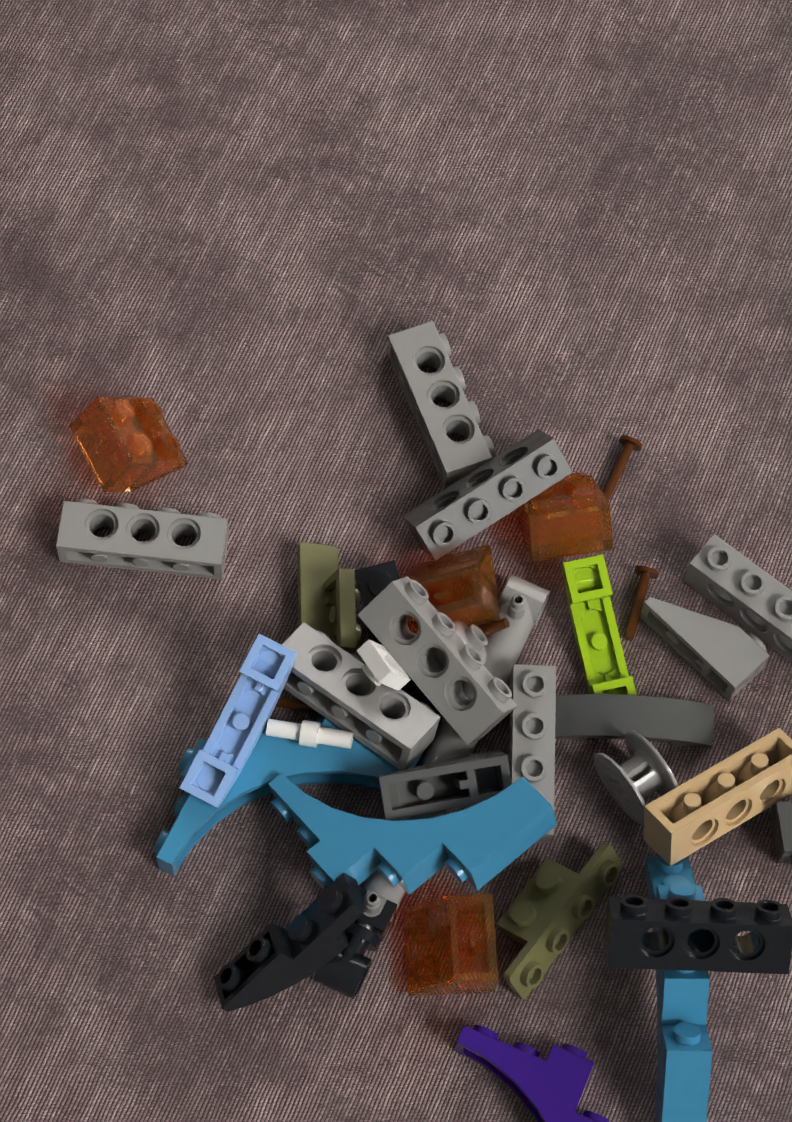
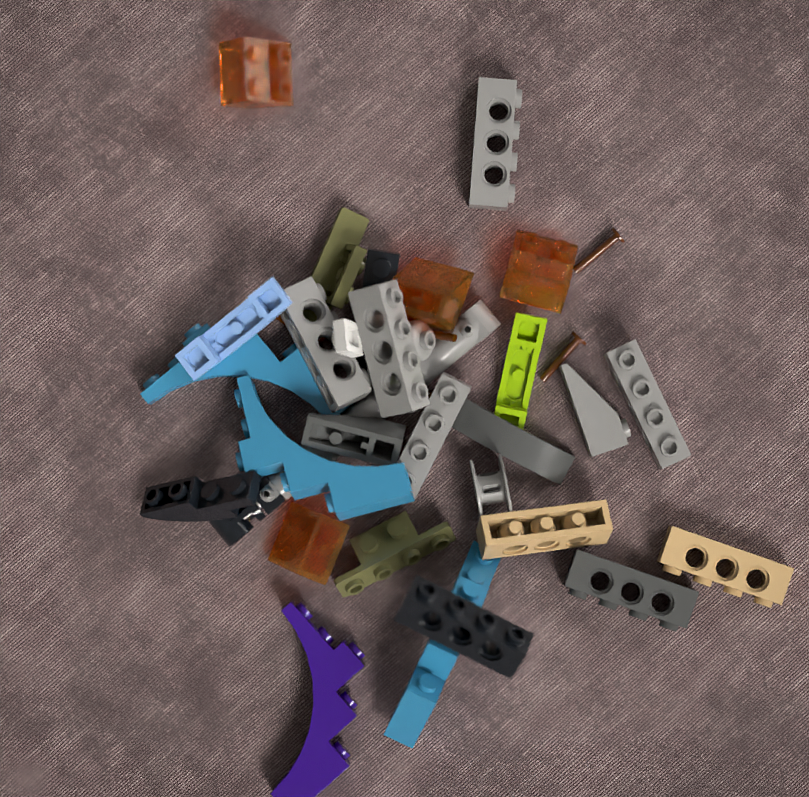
camera: 30 degrees right, 20 degrees up
(160, 554) = (188, 132): light grey brick -> none
(309, 733) = (280, 356): white bar -> none
(487, 494) = (489, 234): brick -> none

